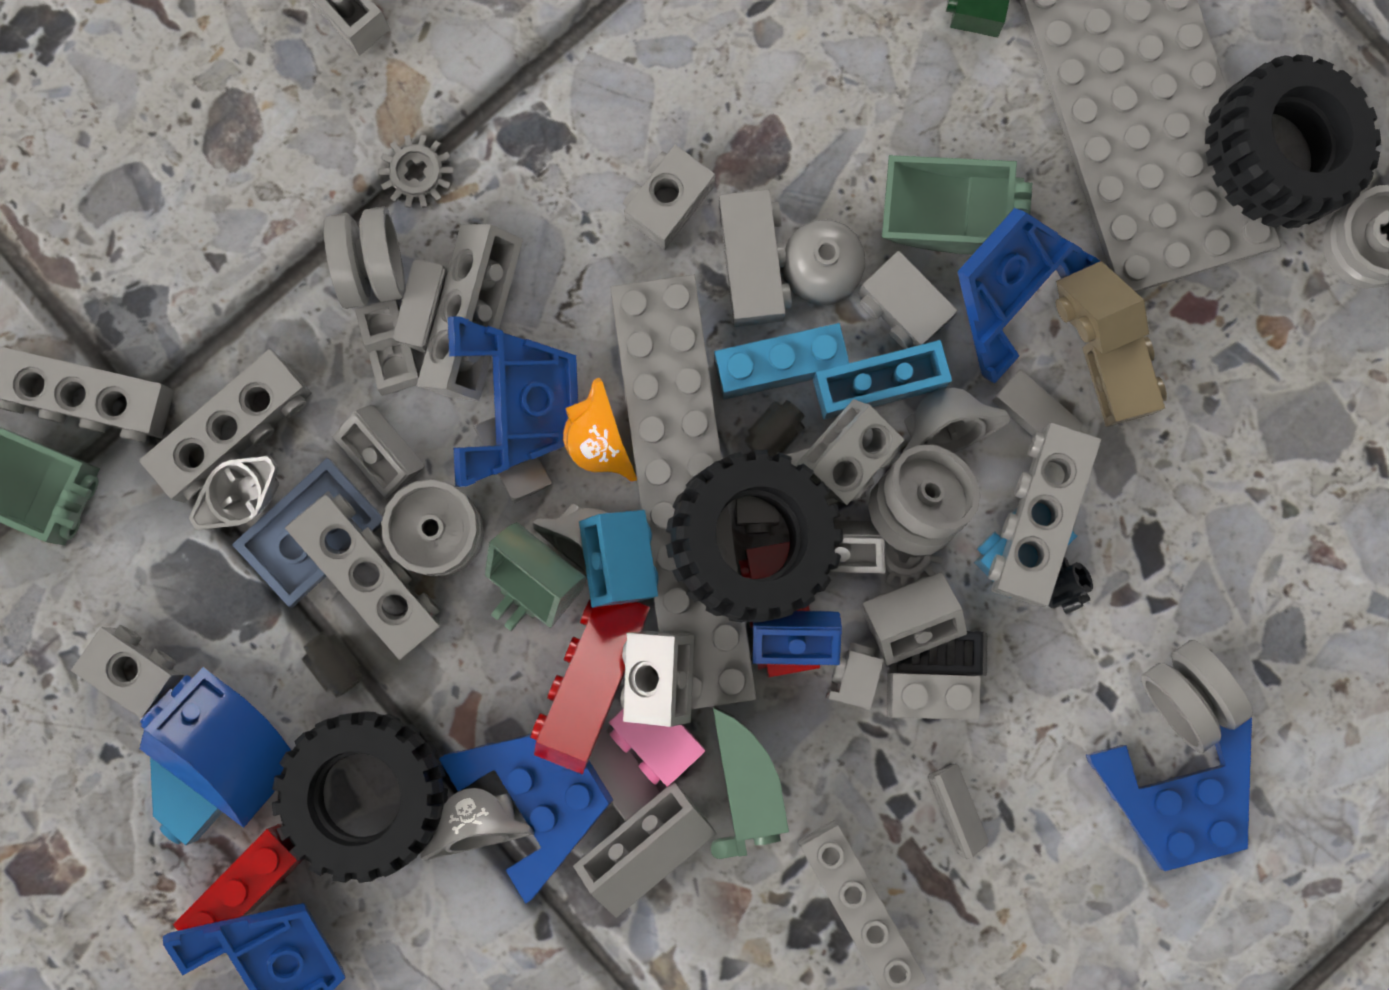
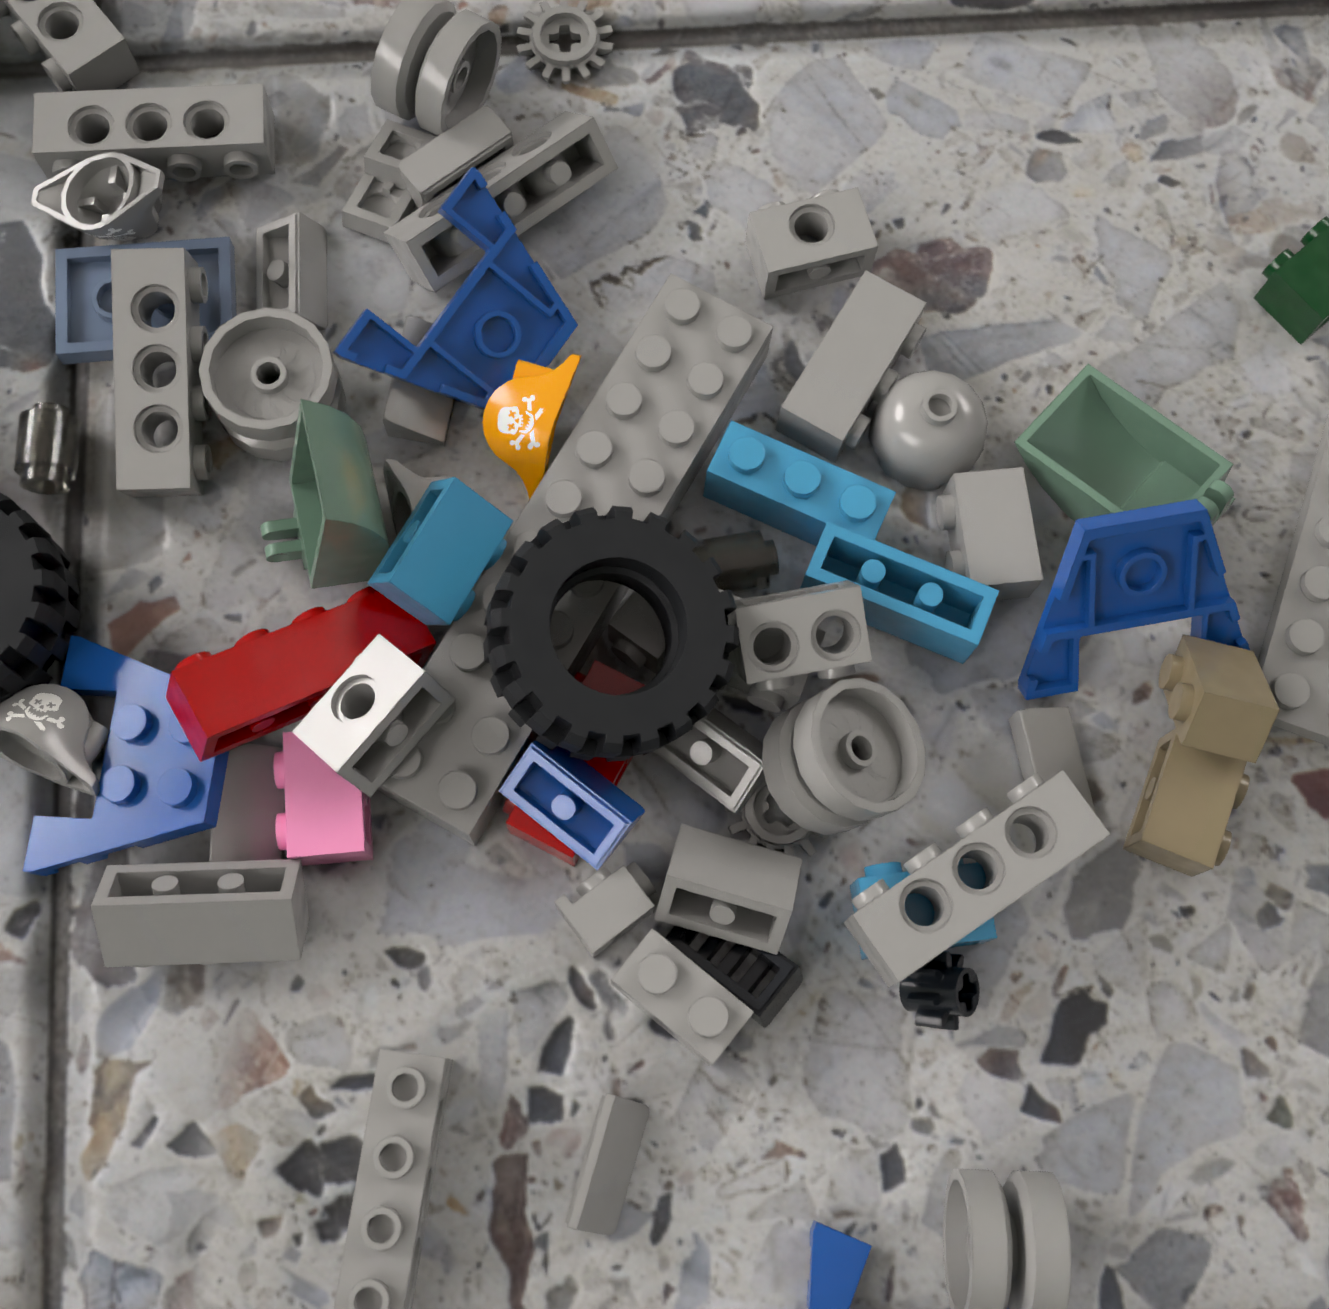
camera: 30 degrees right, 10 degrees down
(751, 788) = (380, 929): sand green piece -> none
(953, 420) = (950, 702): light grey hat -> none

